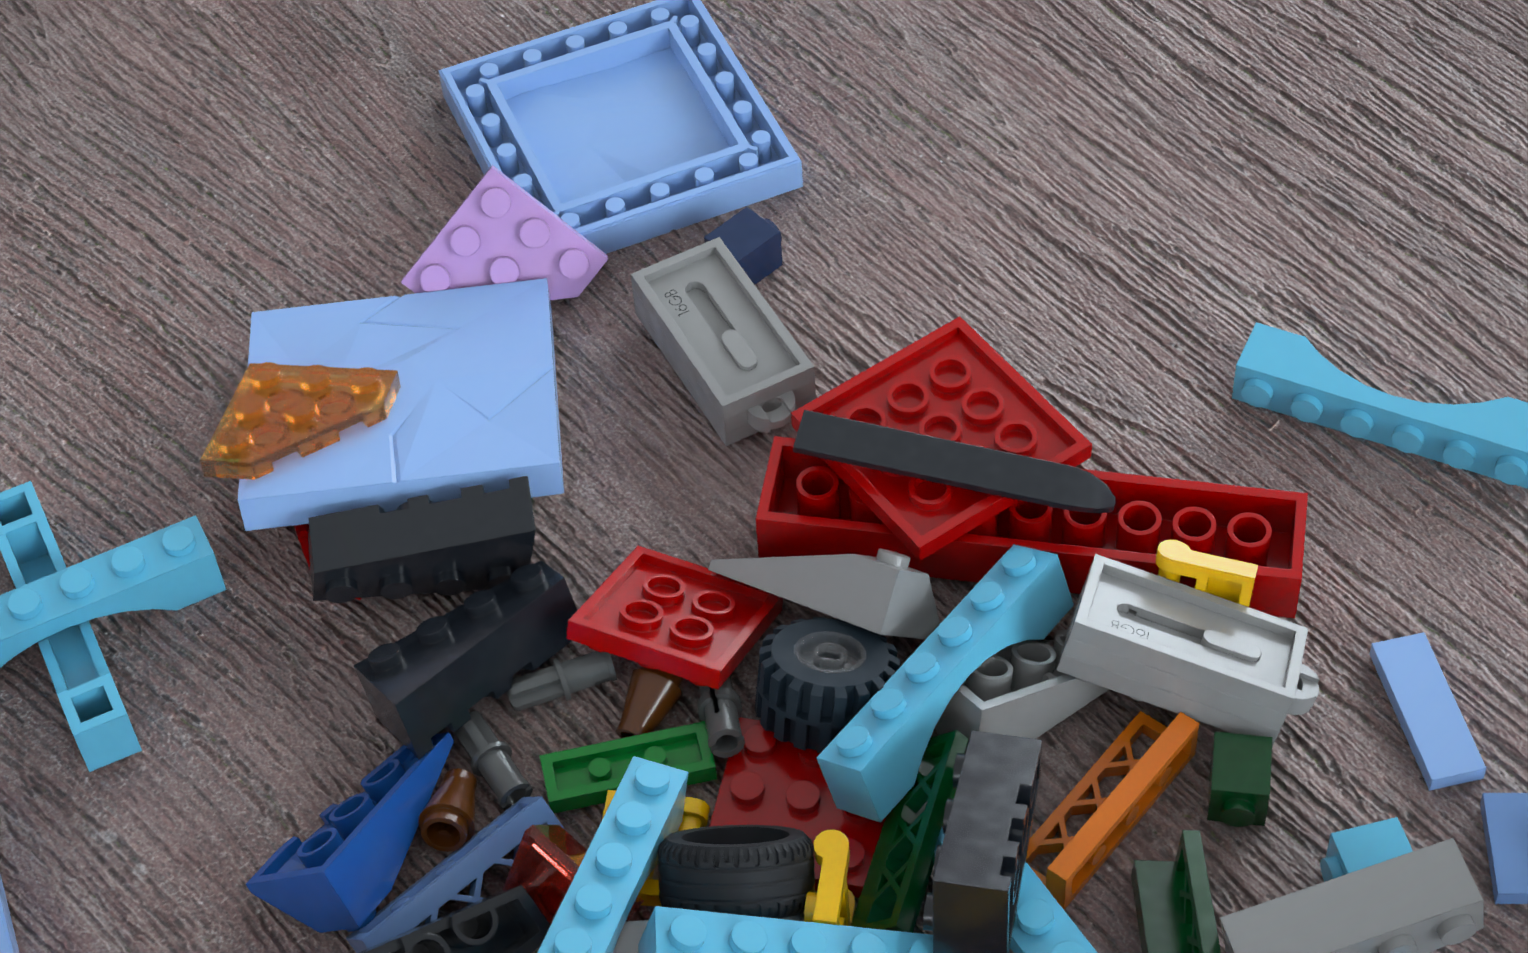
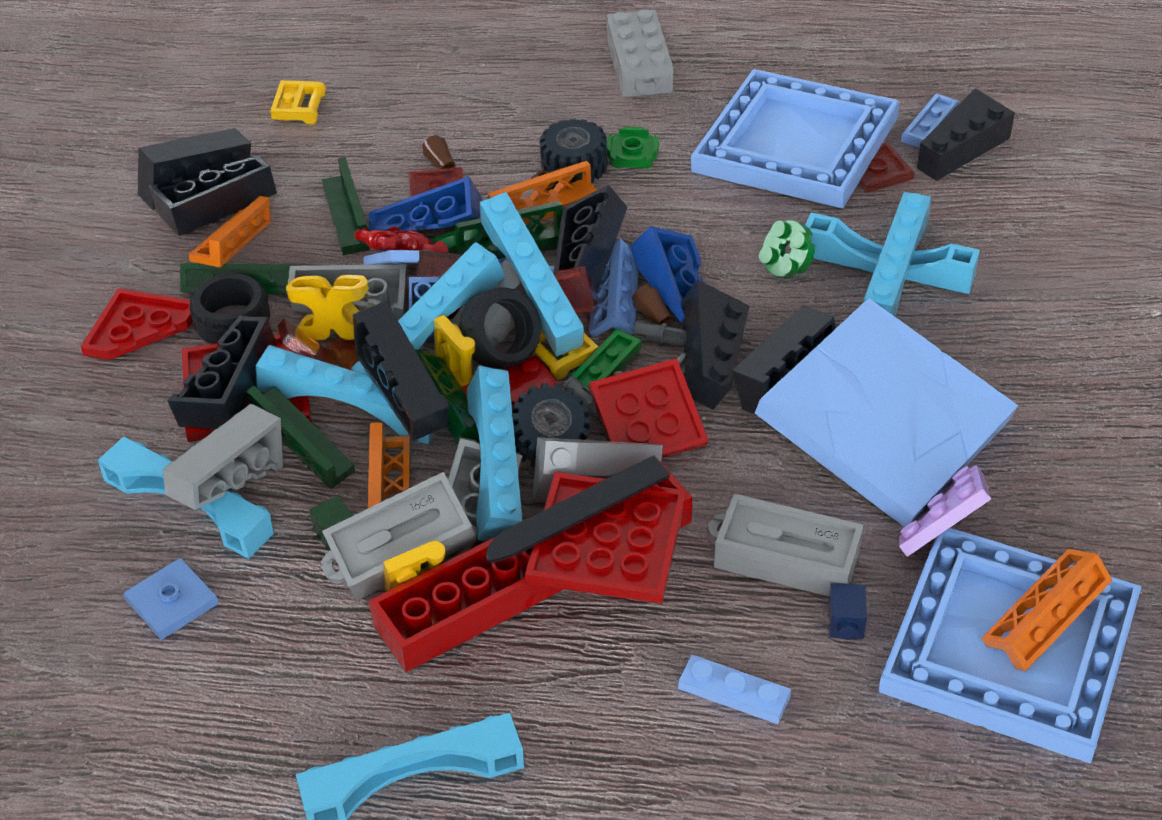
camera: 135 degrees right, 5 degrees down
(198, 726) = (774, 248): none -> plate
(291, 411) = (906, 349): clear orange plate -> none
(559, 86) = (1052, 608): none -> orange fence
(947, 271) = (734, 689): none -> light blue plate
(1427, 711) = (273, 624): light blue tile -> none

